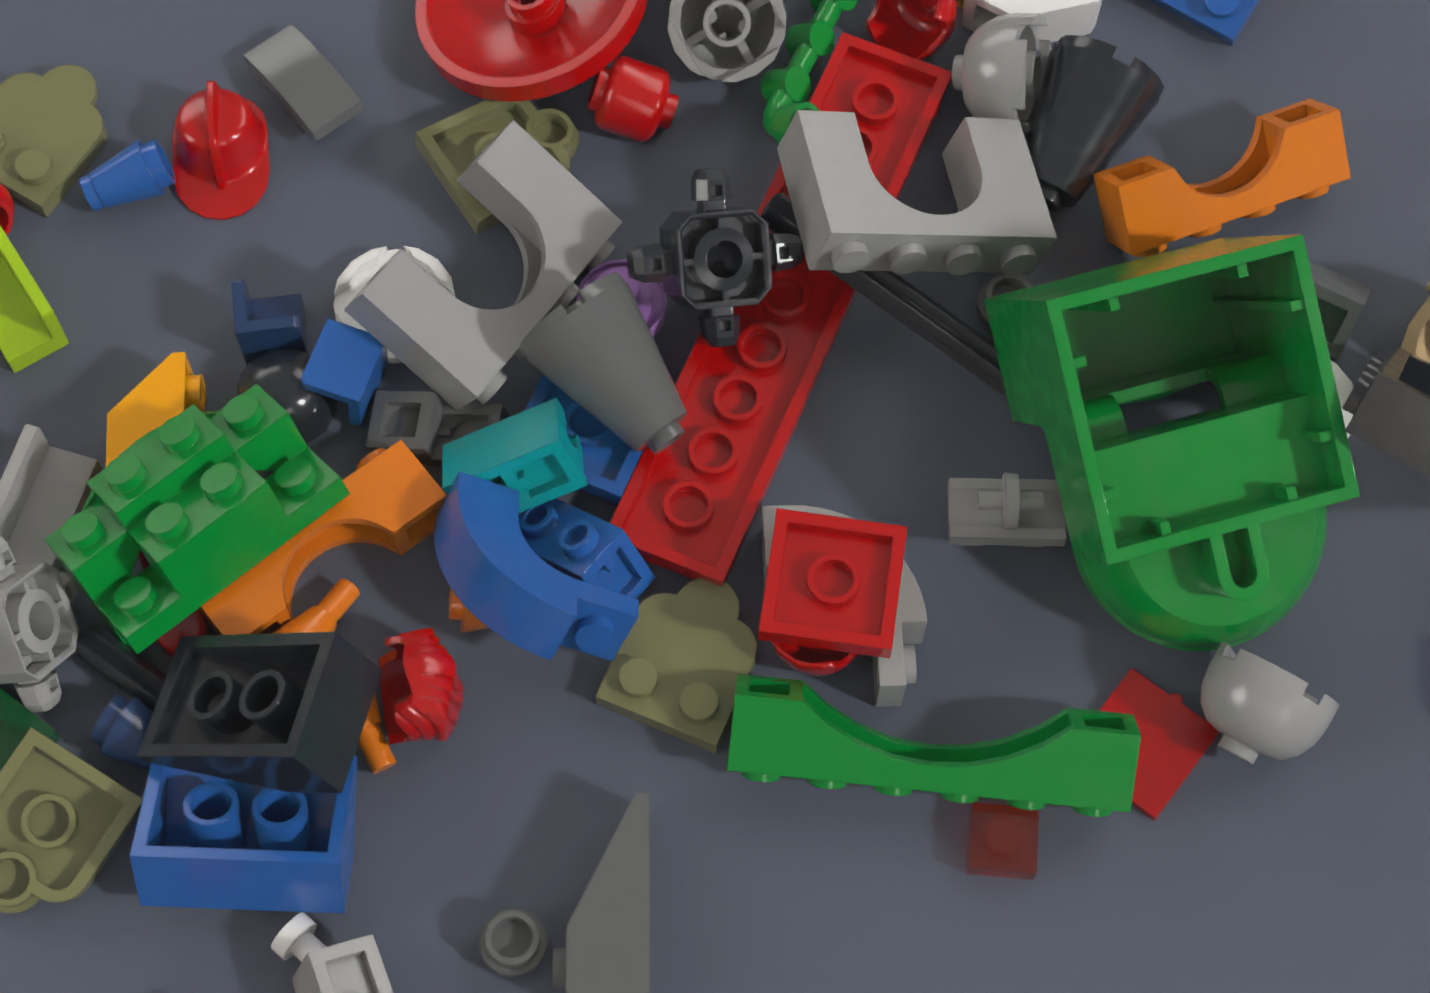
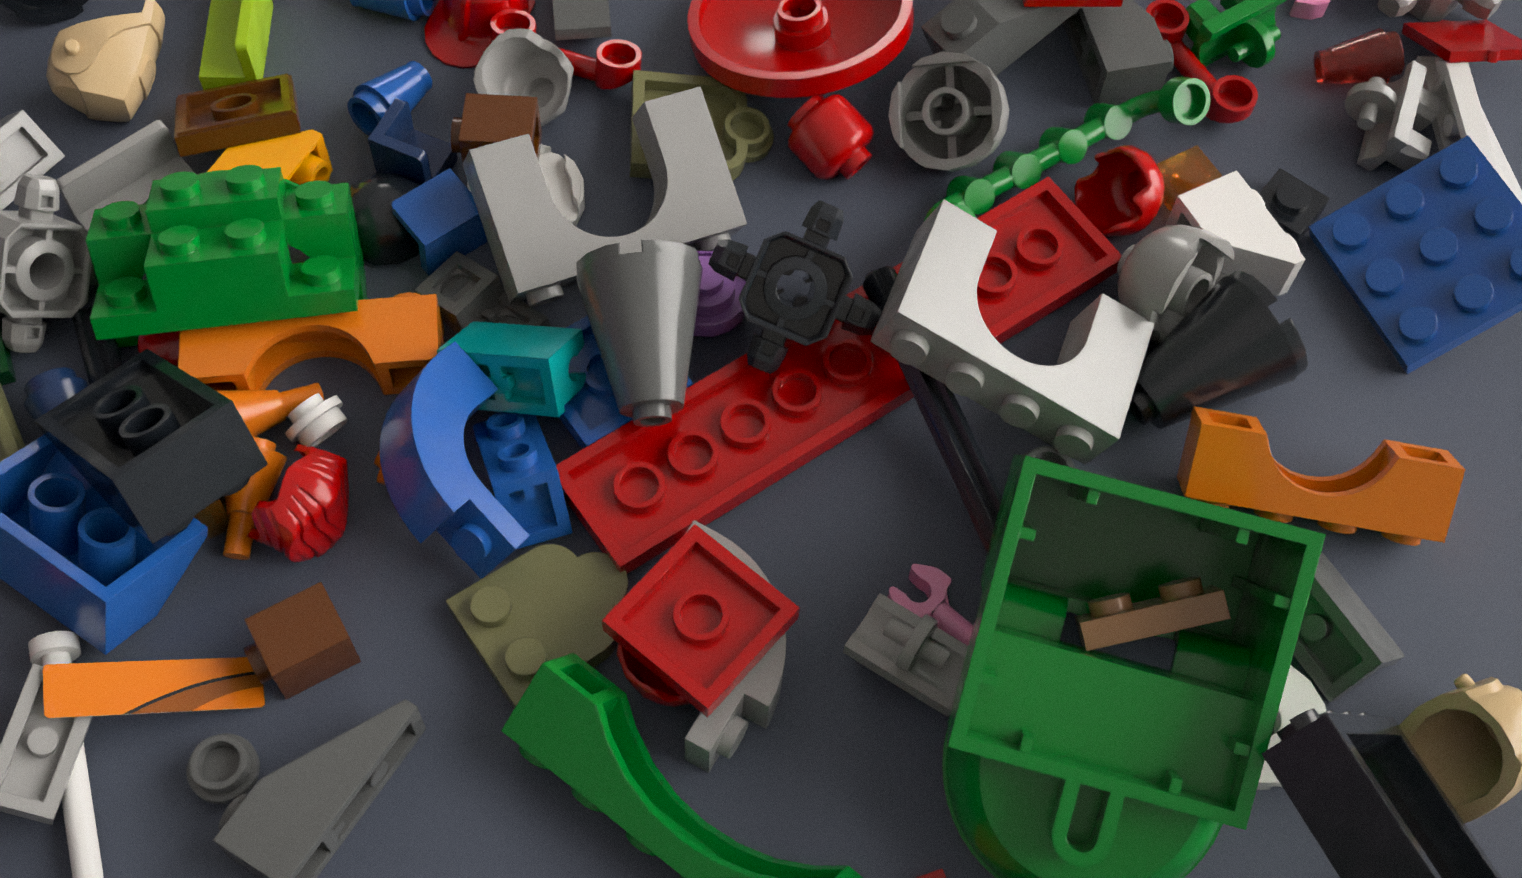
camera: 30 degrees right, 5 degrees down
(82, 378) = (236, 114): none -> reddish brown tile
(205, 284) = (375, 96): none -> blue cone
(326, 200) = (526, 66): none -> light grey hair
(341, 260) = (495, 119): none -> reddish brown brick
(369, 612) = (316, 420): none -> white plate
(389, 141) = (613, 59): none -> red bar
(410, 912) = (150, 687): none -> orange sticker
(503, 801) = (299, 642): none -> reddish brown brick
(993, 465) = (935, 586): none -> bright pink bar
(1202, 355) = (1180, 606): none -> medium nougat plate

